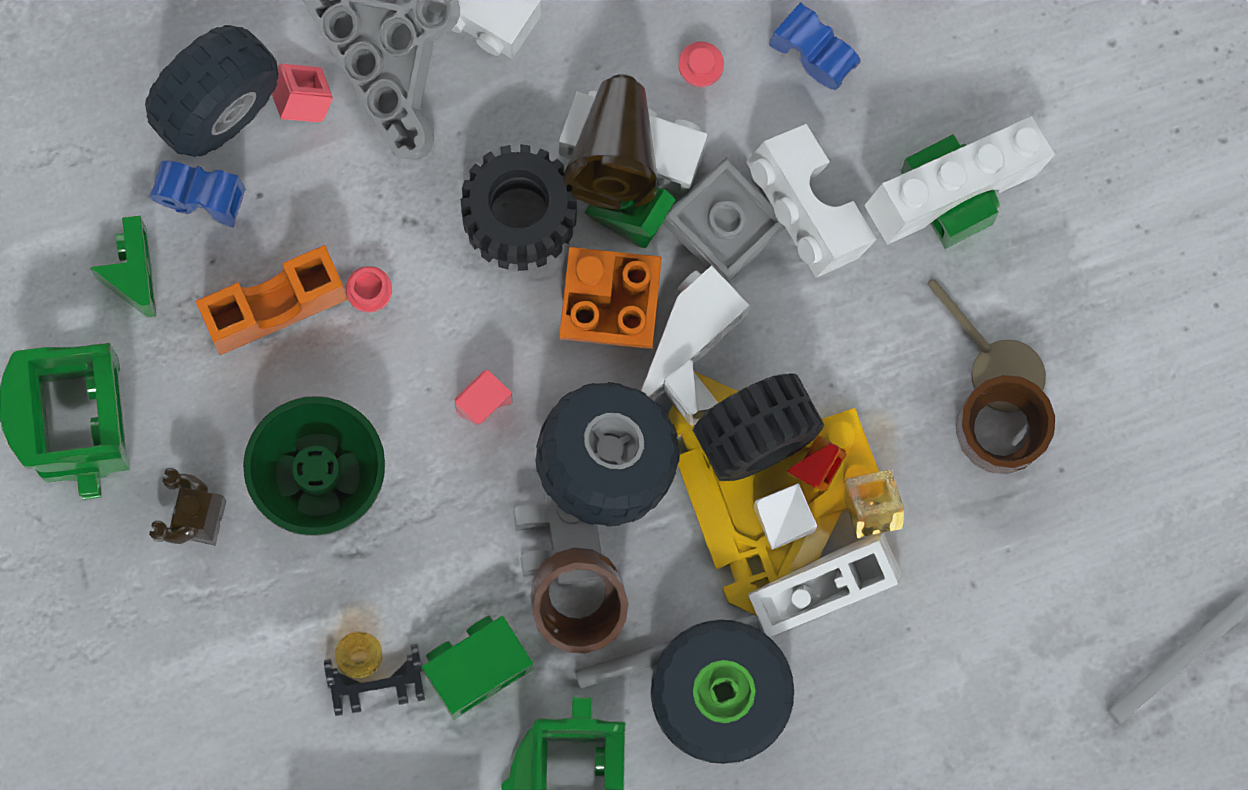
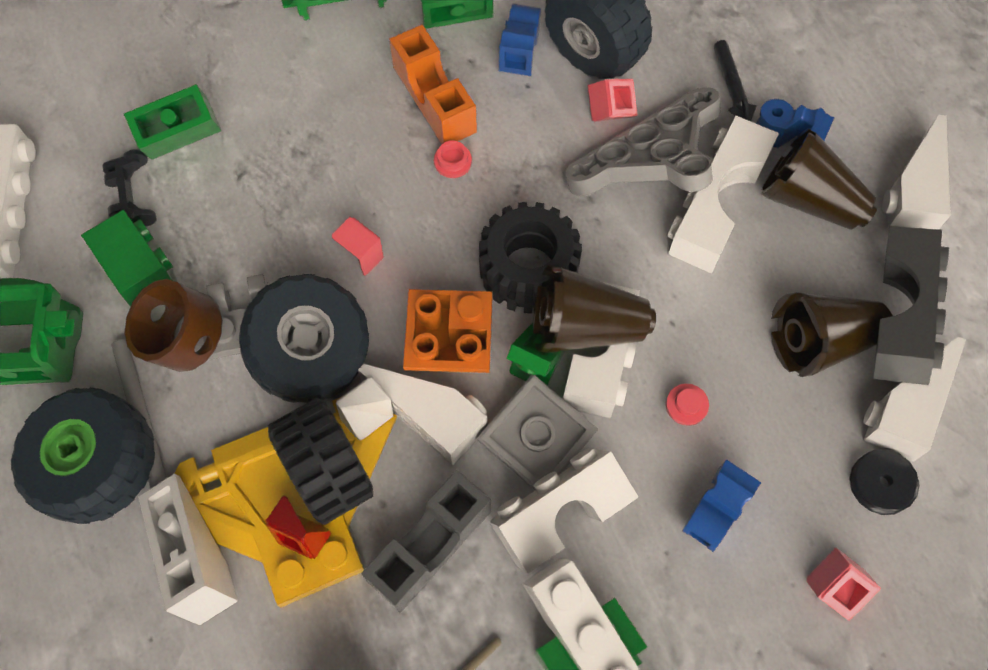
camera: 90 degrees right, 10 degrees down
(196, 511) = (262, 52): dark brown piece -> none
(295, 448) = (290, 118): dark green piece -> none
(296, 616) = (172, 122): none -> green brick
(357, 642) = (148, 167): clear yellow plate -> none
(785, 516) = (248, 503): white slope -> none
(817, 319) = (412, 561): none -> dark grey arch
(874, 503) = (262, 571): clear yellow plate -> none

